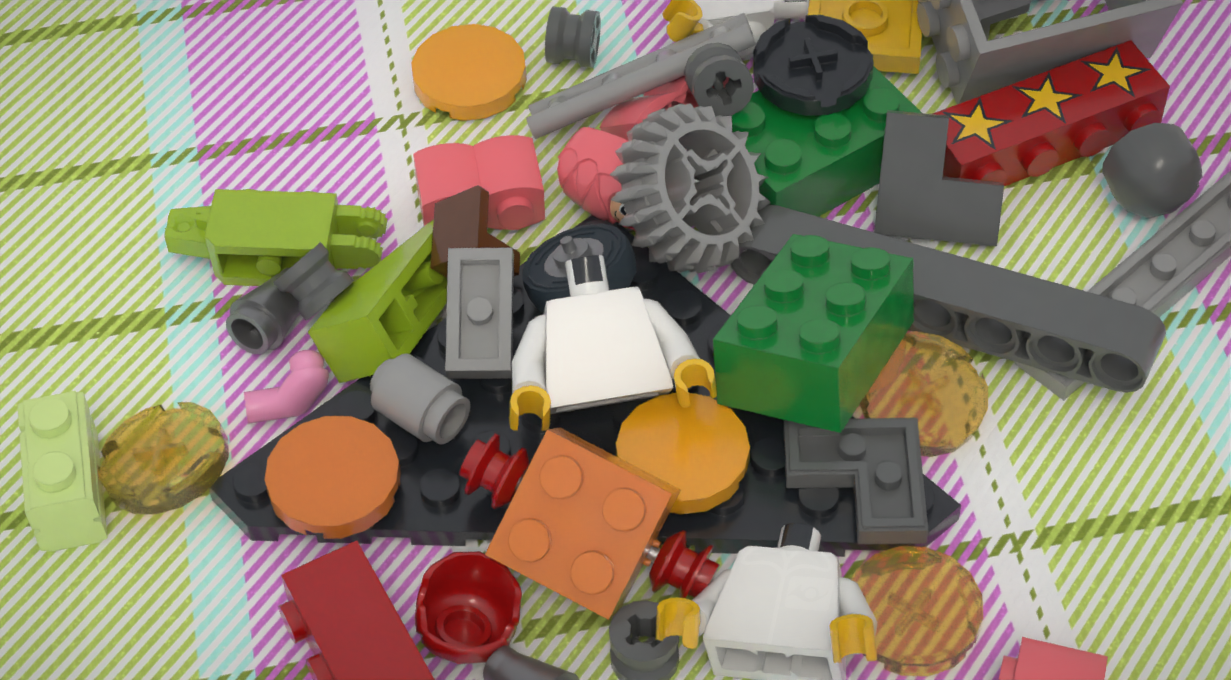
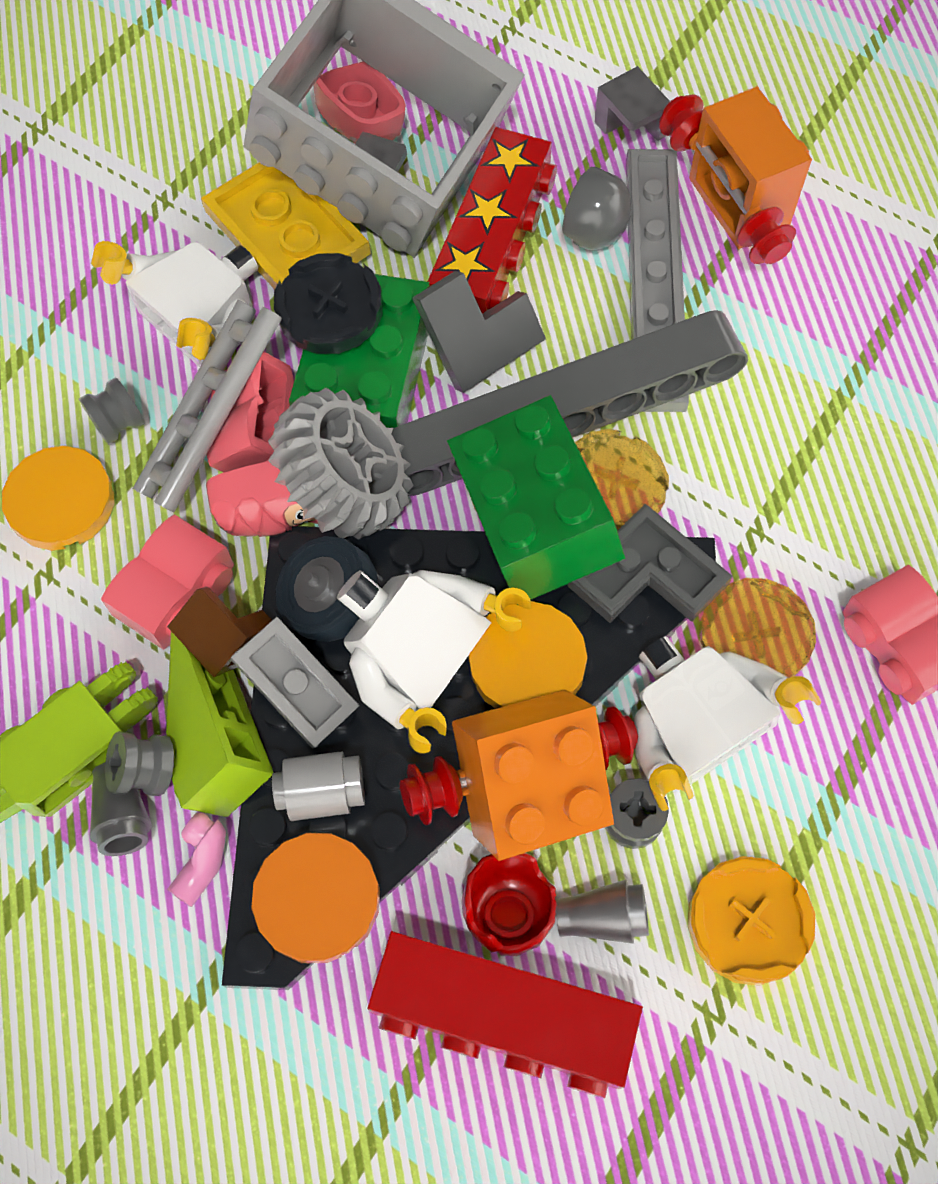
camera: 45 degrees left, 15 degrees up
(61, 471) = (101, 1084): yellowish green brick -> none
(163, 458) = (164, 997): clear yellow tile -> none
(710, 67) = (281, 365): dark grey wheel -> none

